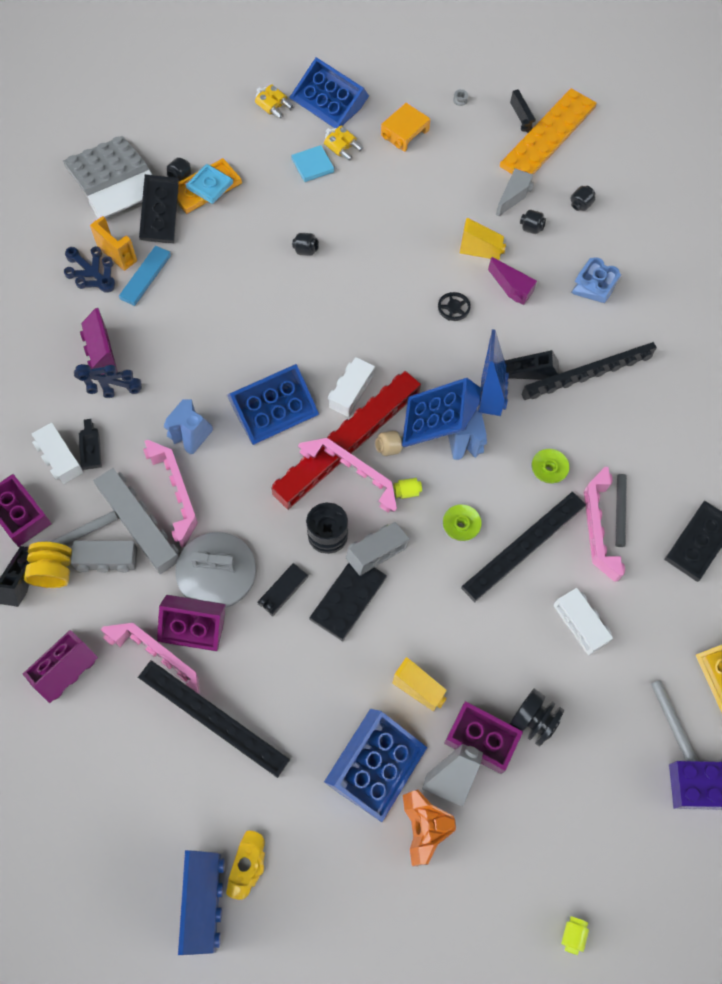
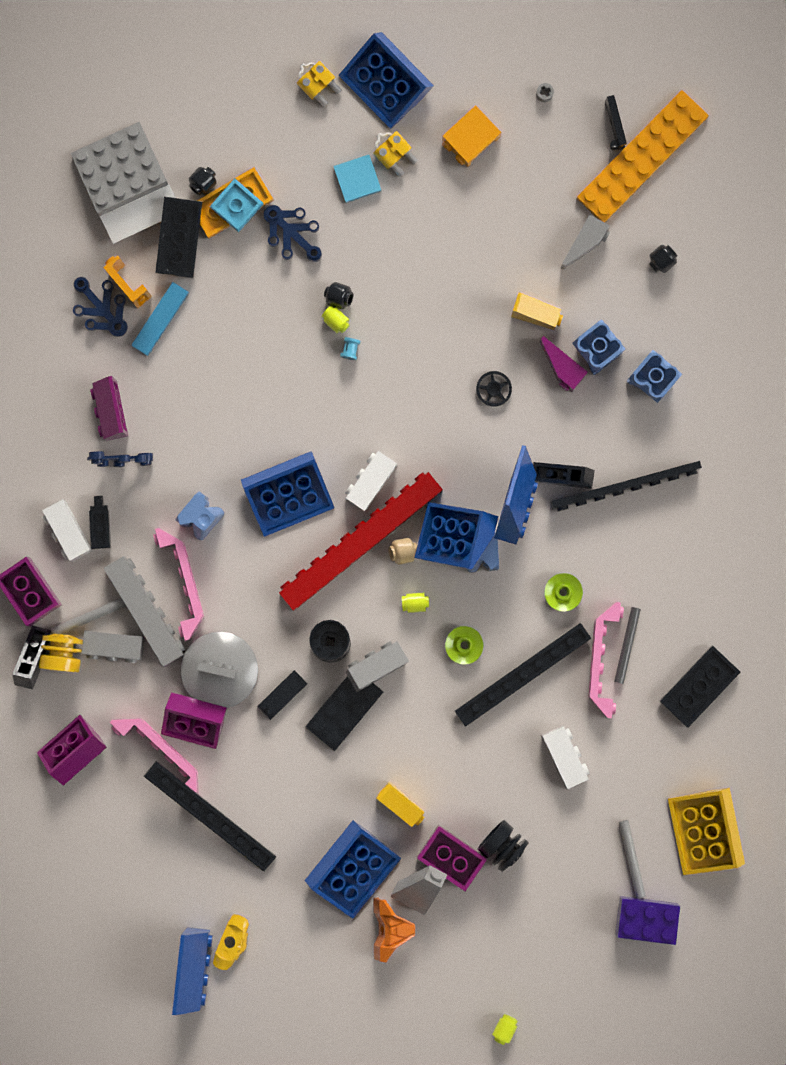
camera: 15 degrees right, 20 degrees up
(245, 193) = (290, 230): none -> dark blue plant
(304, 262) = (335, 319): none -> neon yellow brick
(311, 448) = (321, 559): bright pink slope -> none
(319, 286) = (350, 348): none -> medium azure bush
(533, 221) = (599, 287): black head -> none
(543, 262) = (599, 346): none -> medium blue piece

